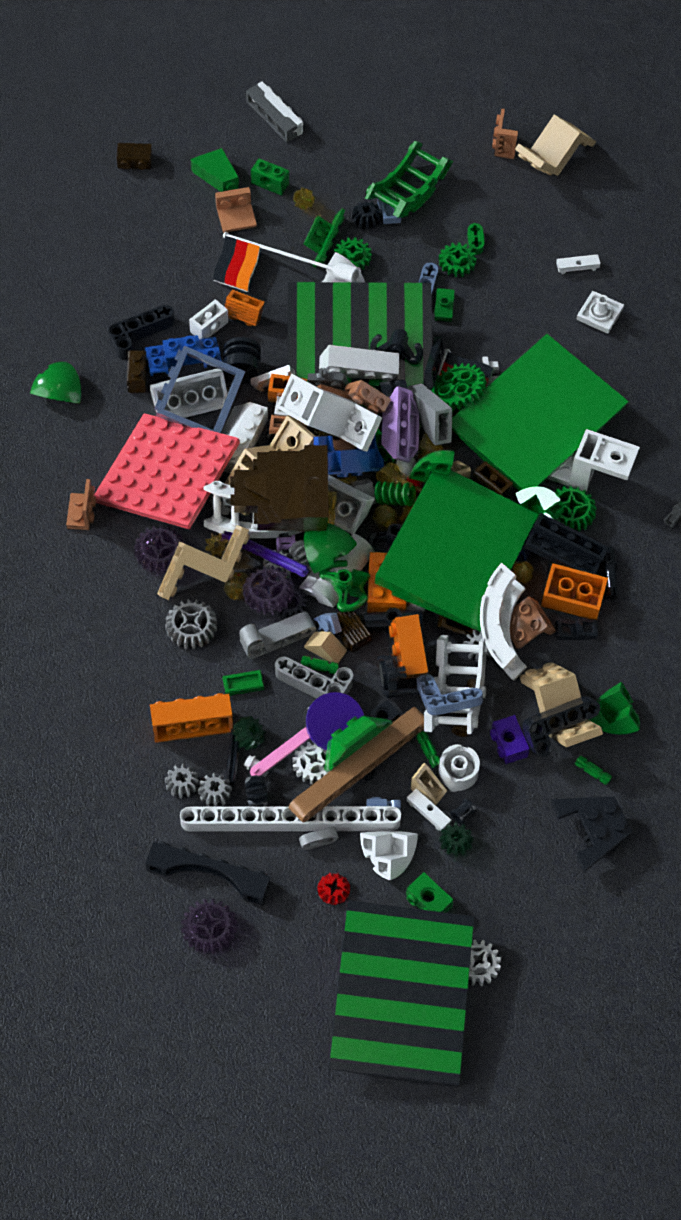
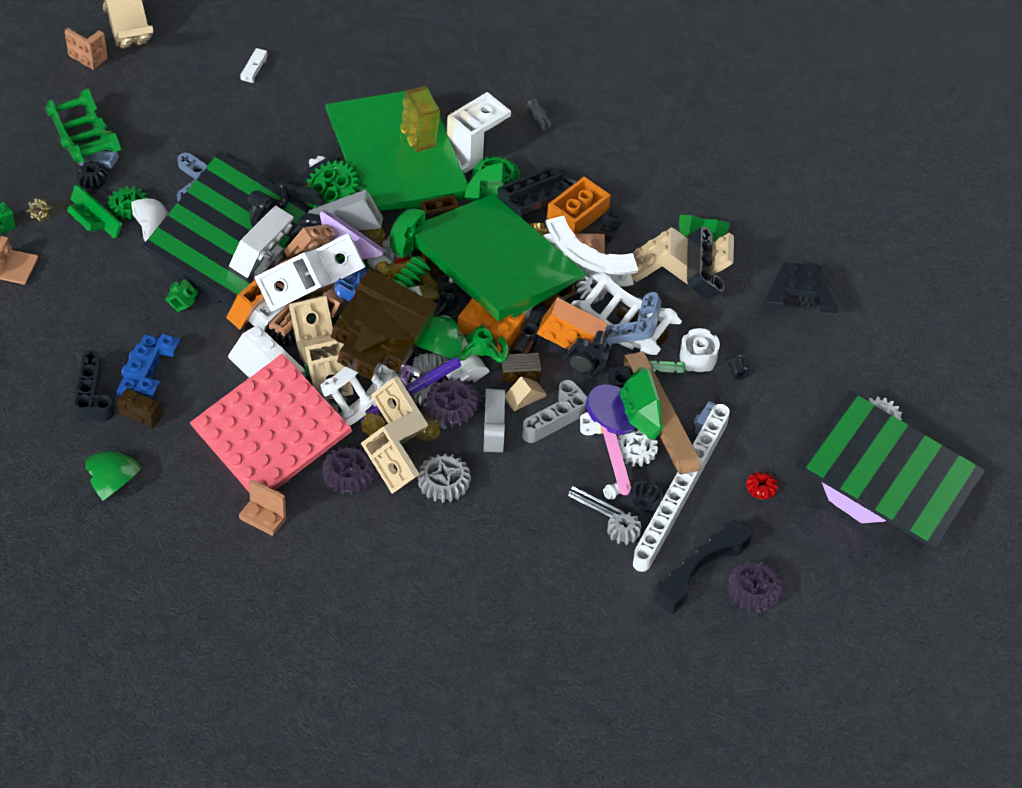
camera: 65 degrees left, 10 degrees down
(173, 373) = (187, 375): sand blue window -> none
(175, 784) = (601, 548): light grey gear -> none
(191, 717) = (546, 511): orange brick -> none
(194, 393) = (194, 379): white slope -> none
(209, 320) = (124, 330): white brick -> none
(241, 257) = (72, 285): flag -> none
(243, 682) = (525, 467): green tile -> none
(244, 308) = (130, 300): orange brick -> none
(244, 355) = (190, 323): black wheel -> none
(249, 732) = (583, 478): clear green gear -> none
(263, 380) = (223, 310): white piece -> none
(273, 347) = (181, 295): none -> green brick
(318, 838) = (711, 473): light grey beam -> none
(320, 665) = (541, 404): green axle -> none
(328, 622) = (509, 376): sand blue plate -> none
(389, 851) = (749, 431): white brick -> none
(421, 803) = (732, 387): white piece -> none
(423, 887) = (804, 422): green brick -> none
(428, 784) = (700, 380): tan slope -> none
(457, 259) = (189, 137): green gear -> none
(463, 843) = (762, 382): clear green gear -> none
(479, 238) = (174, 117): green beam -> none
(509, 728) = (690, 307): dark purple brick -> none
(564, 408) = (420, 119): none -> clear yellow brick
(593, 770) = (745, 271): green axle -> none
(600, 312) = (313, 73): white plate -> none

